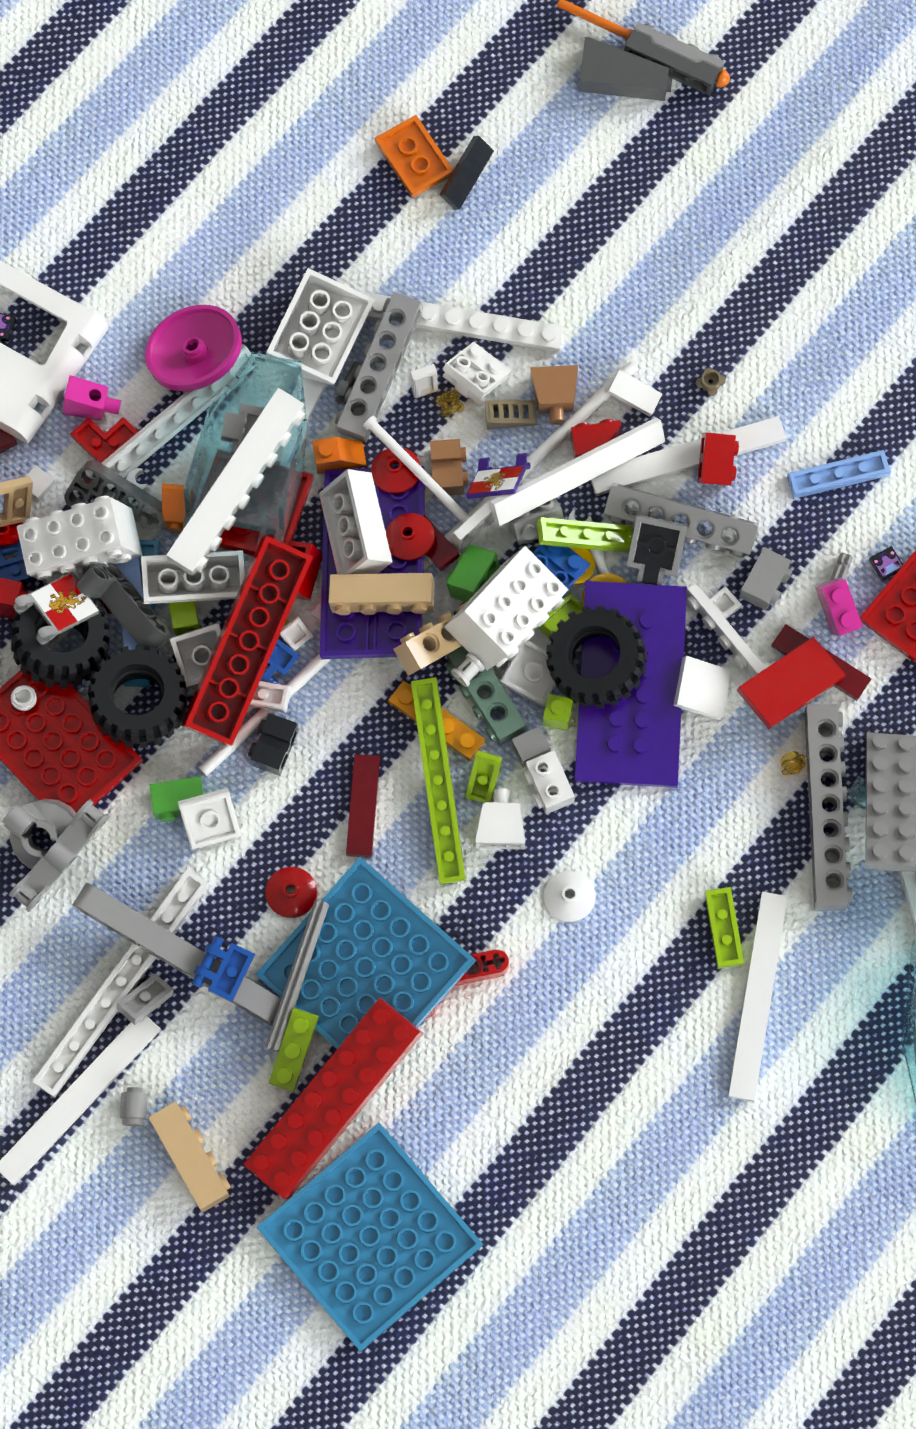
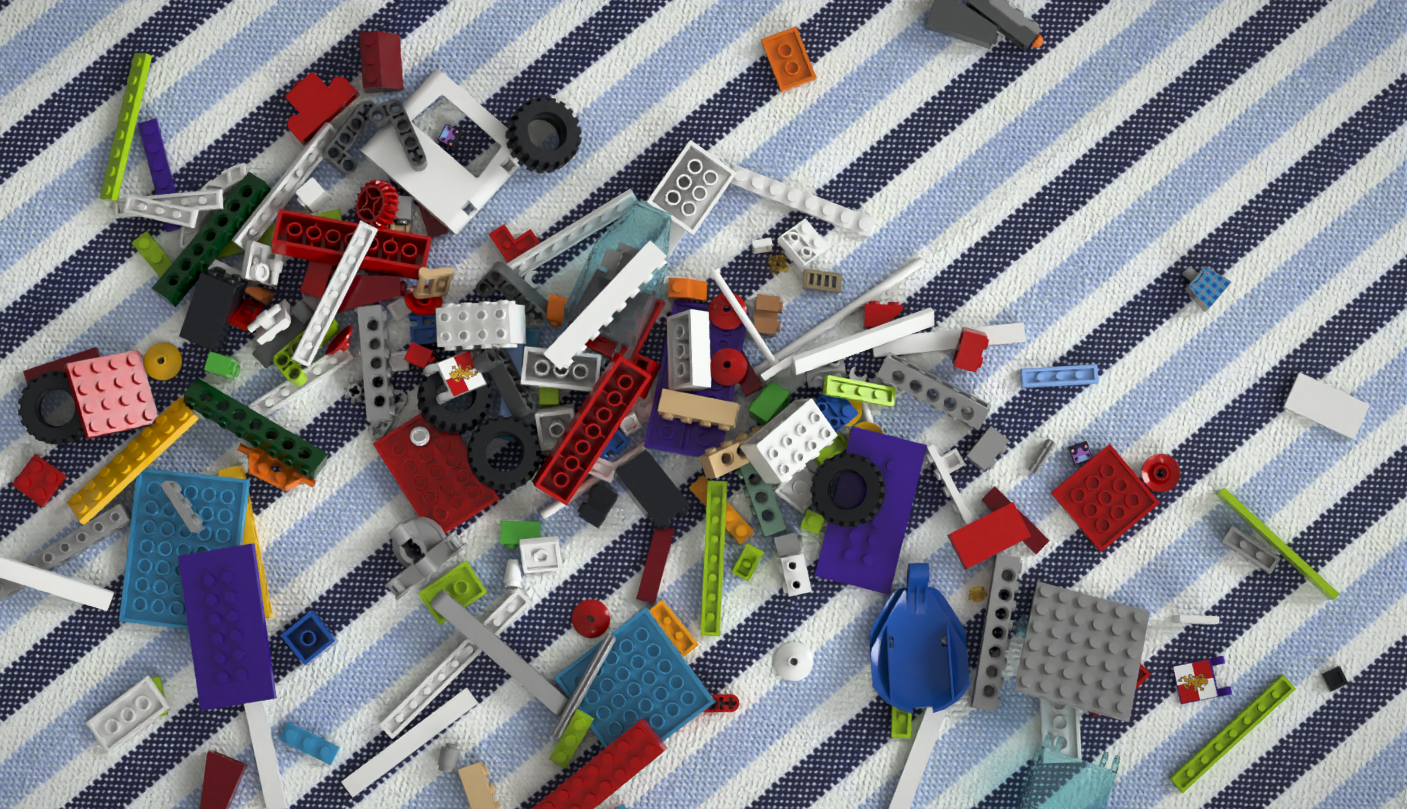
camera: 10 degrees right, 10 degrees up
(41, 482) = (459, 266): white tile -> none
(88, 399) = (499, 208): dark pink torso -> none
(111, 875) = (460, 584): none -> lime plate
(131, 272) = (559, 118): none -> black tyre
(144, 999) = (470, 680): light grey plate -> none
(177, 854) = (512, 574): none -> white cone
(193, 347) = (592, 185): dark pink dish -> none
(230, 973) = (535, 677): blue plate -> none
(340, 708) = (652, 491): none -> black brick
(346, 383) = (701, 236): dark grey bar -> none
(396, 307) = (761, 189): light grey brick -> none
(404, 880) = (673, 628): none -> light orange plate
(466, 172) = (826, 80): black tile -> none
(467, 670) = (751, 480): white bush -> none
(497, 481) = (802, 337): flag -> none
(500, 824) = (753, 598): white torso -> none
(554, 390) = (859, 270): medium nougat torso -> none
(634, 393) = (918, 283): white tile -> none
(656, 548) = (910, 412): black piece -> none
(702, 687) = (922, 524): white tile -> none
(710, 374) = (978, 289): dark tan plate -> none
(733, 868) = (918, 667): none -> blue windscreen
(838, 606) = (1036, 483): dark pink brick -> none

